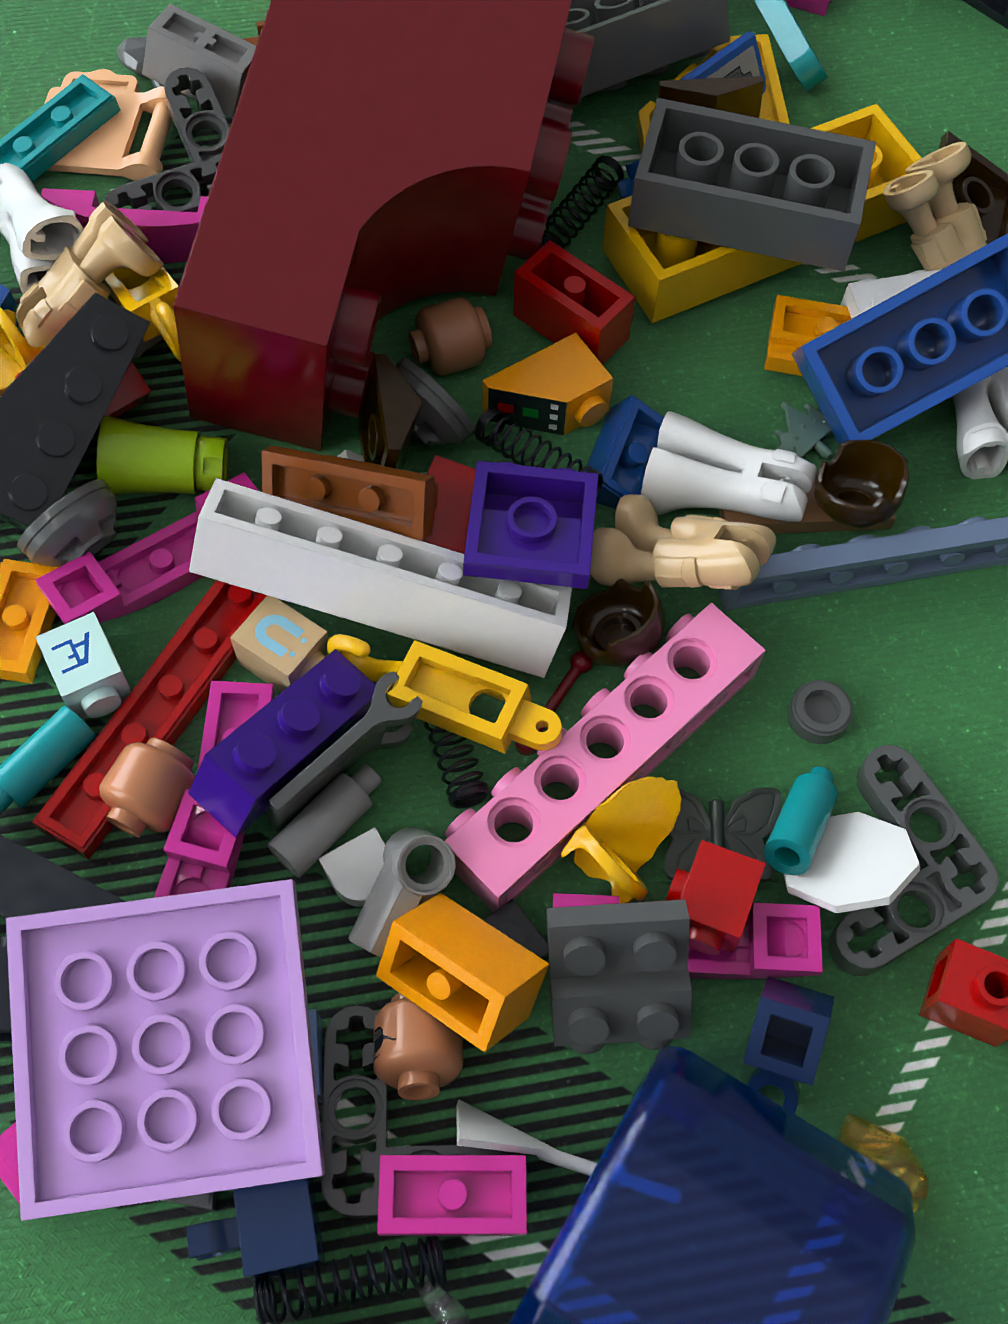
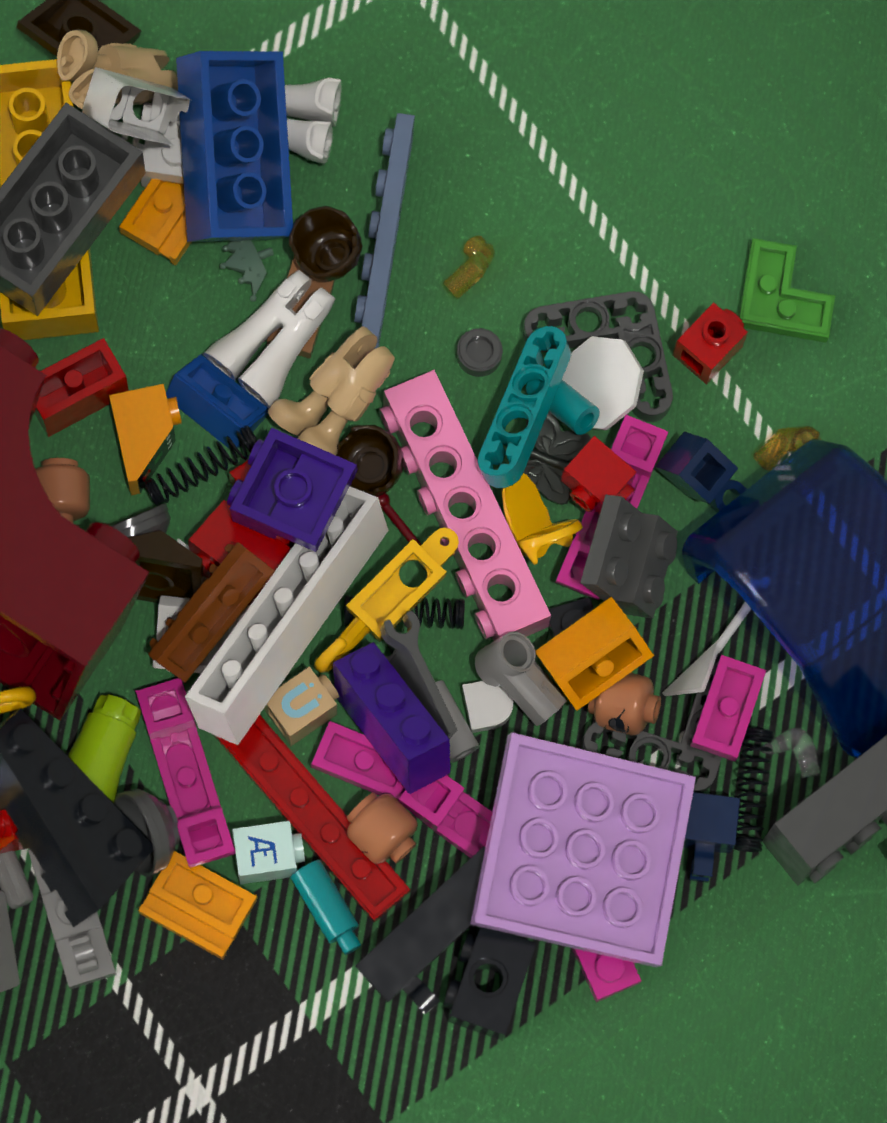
camera: 75 degrees left, 10 degrees up
(841, 773) = (518, 405): none -> teal beam
(931, 214) = (103, 95): none -> white piece
(939, 670) = (473, 269): none -> clear yellow arm

